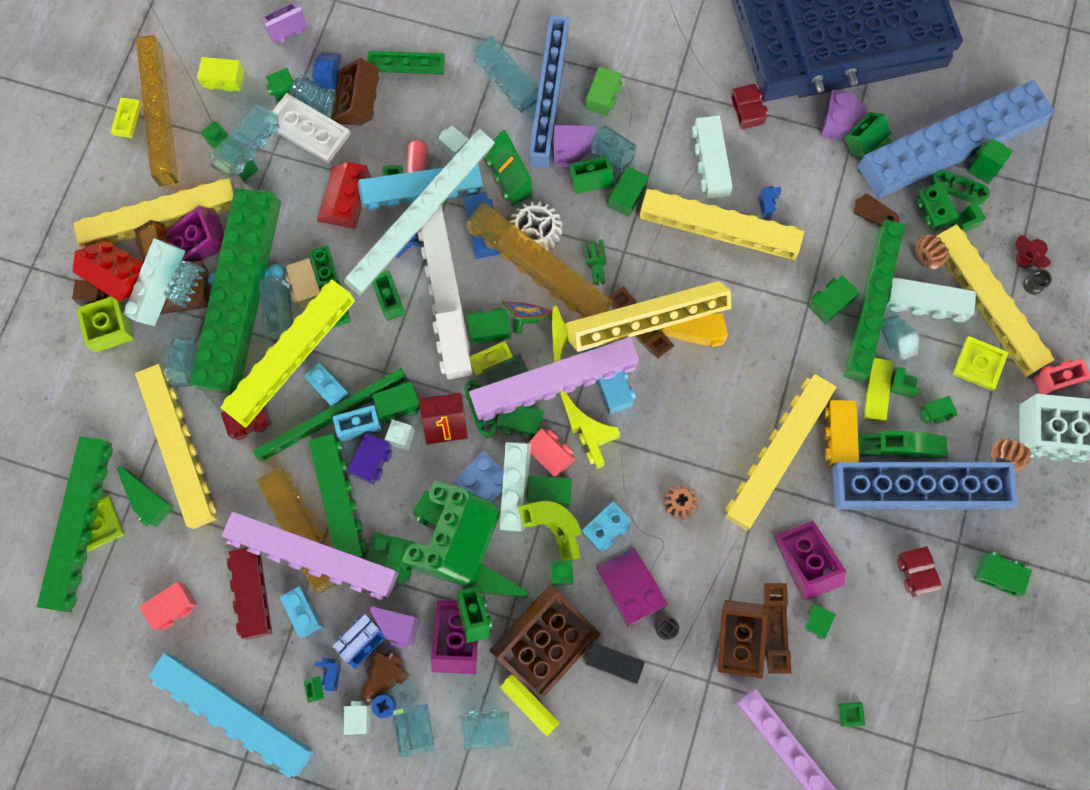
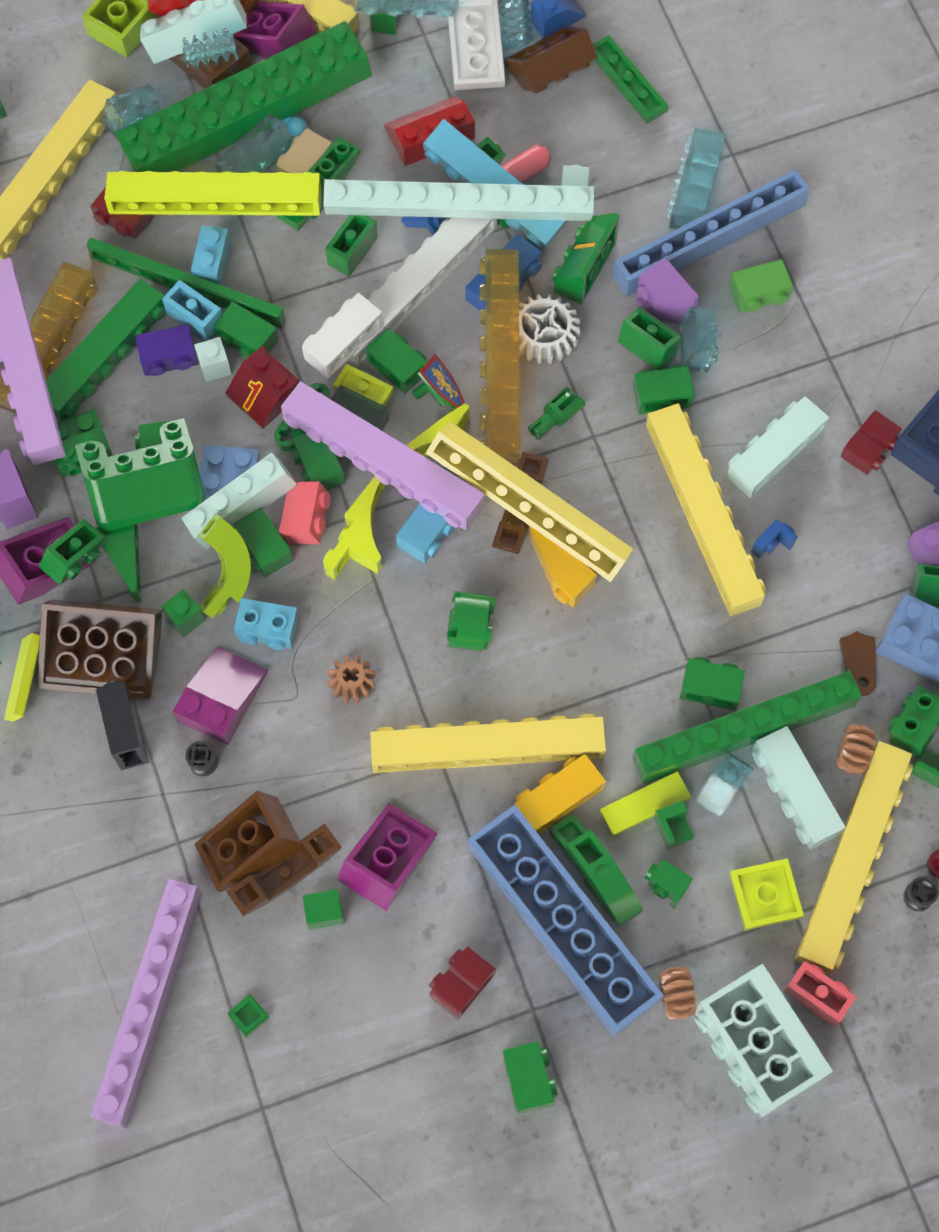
camera: 50 degrees right, 5 degrees down
(697, 405) = (469, 621): none -> green brick

